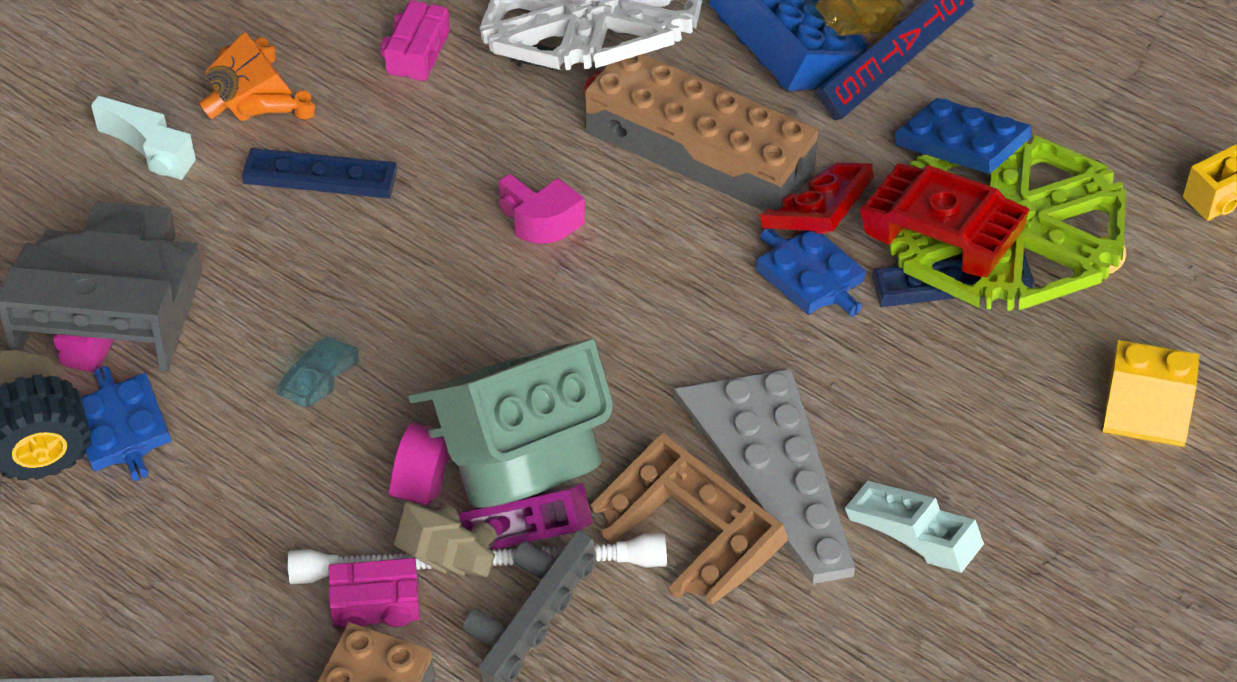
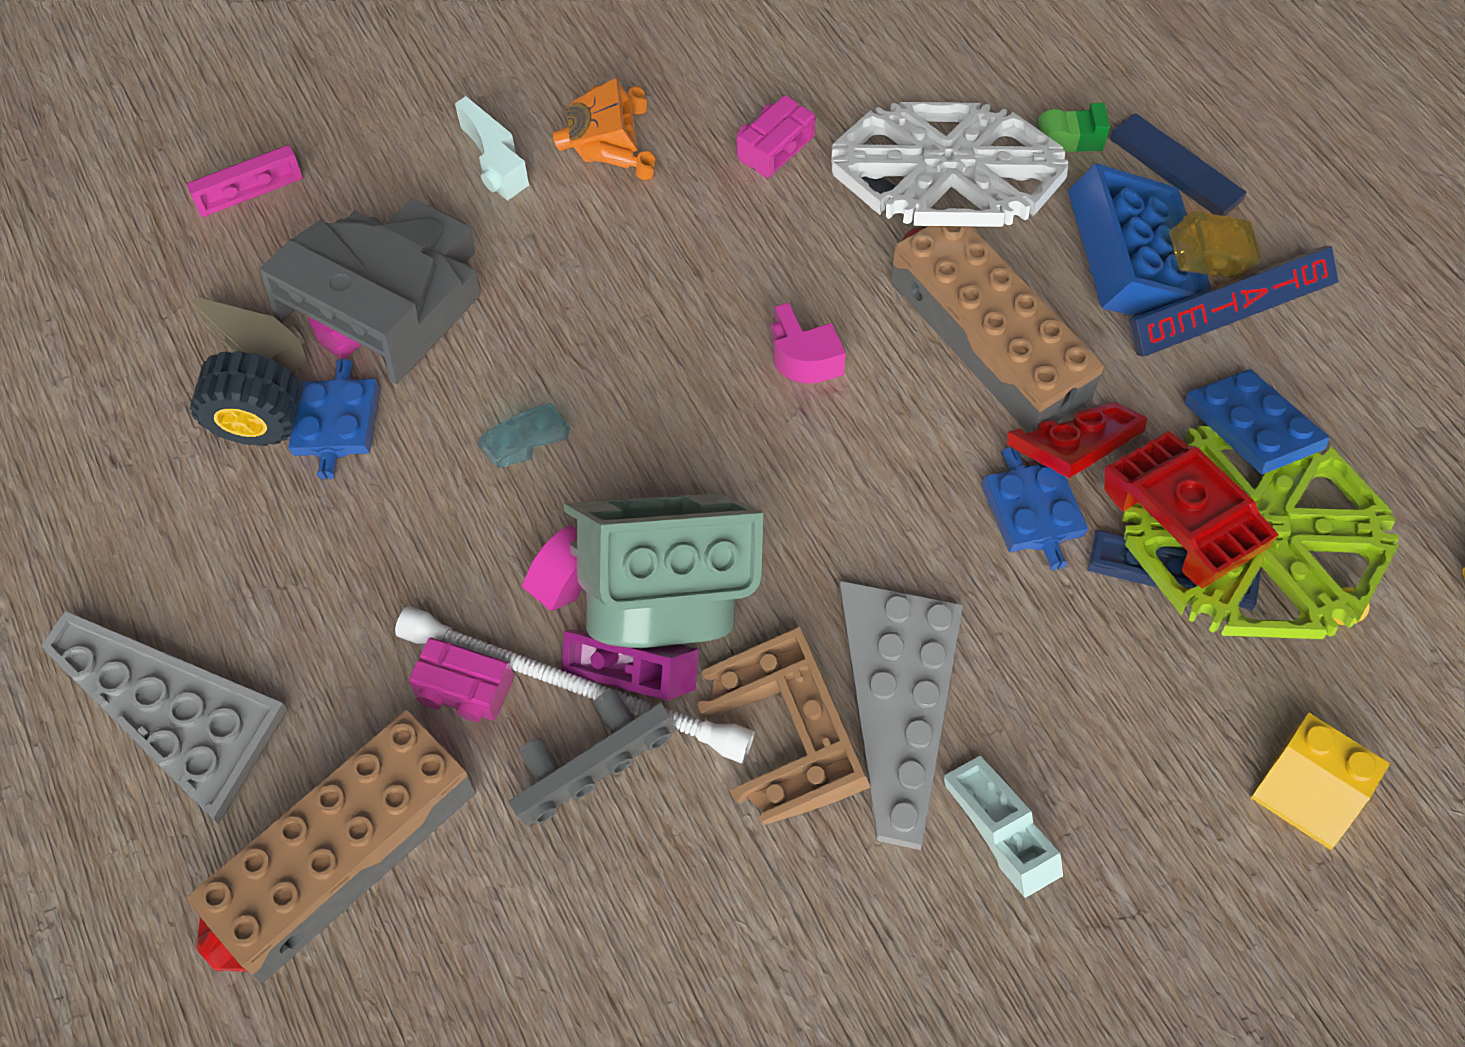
camera: 25 degrees right, 10 degrees up
(320, 173) = (628, 237): dark blue tile -> none
(443, 543) = (531, 657): dark tan connector -> none

